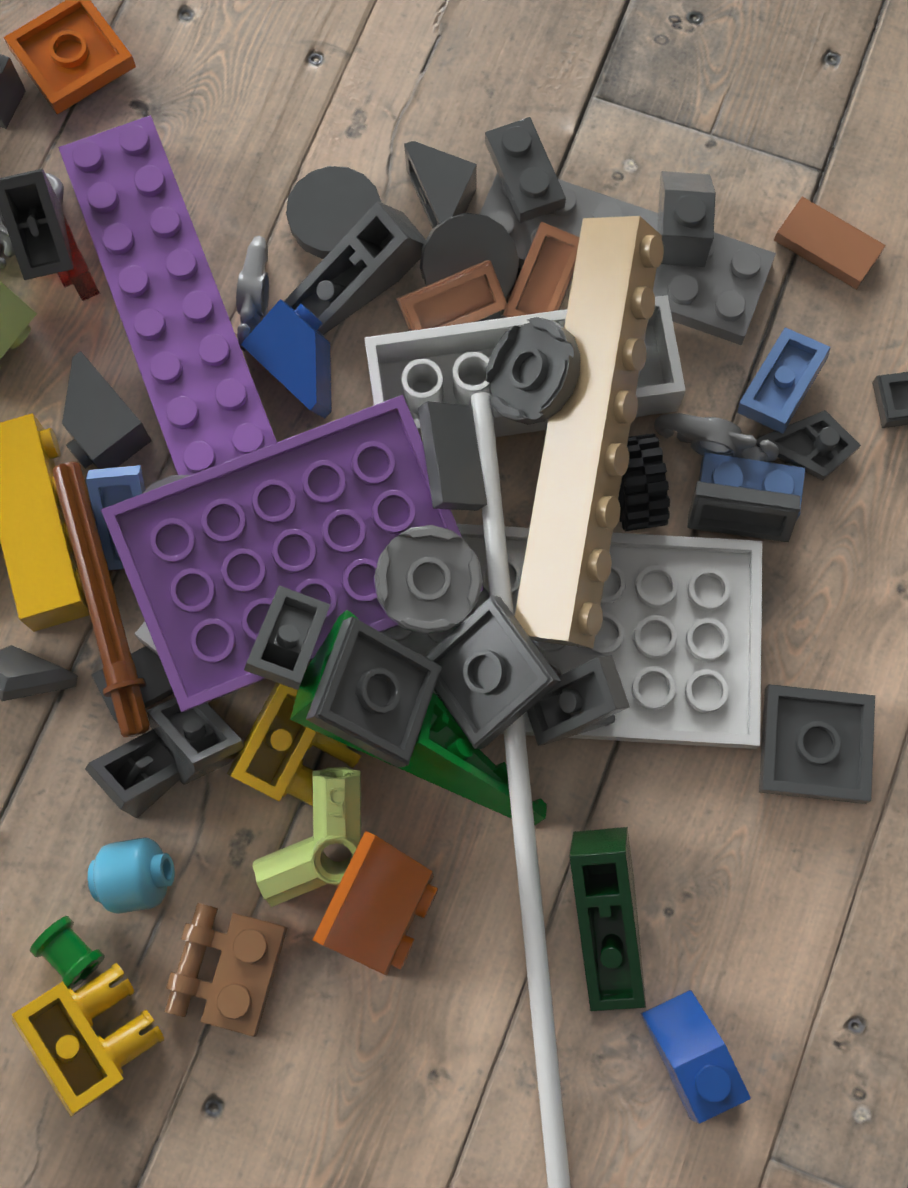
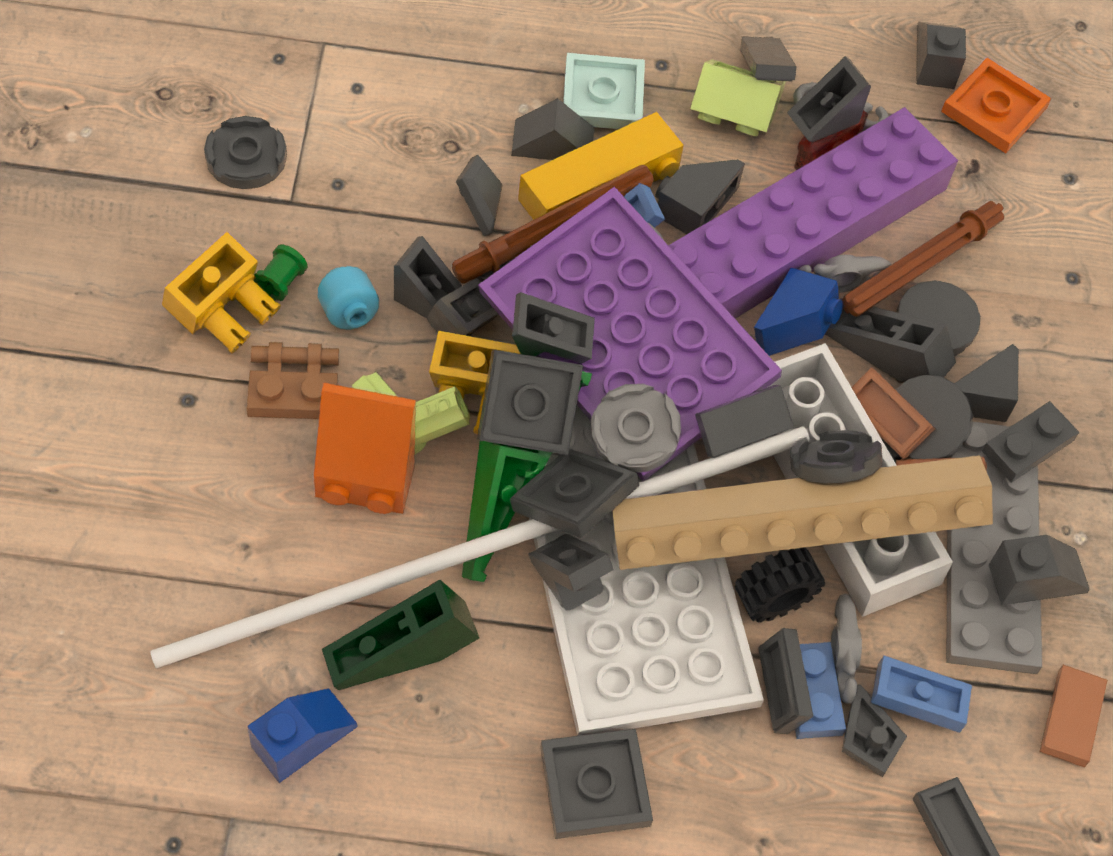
camera: 65 degrees right, 15 degrees down
(228, 136) = (970, 227): none -> dark orange axle

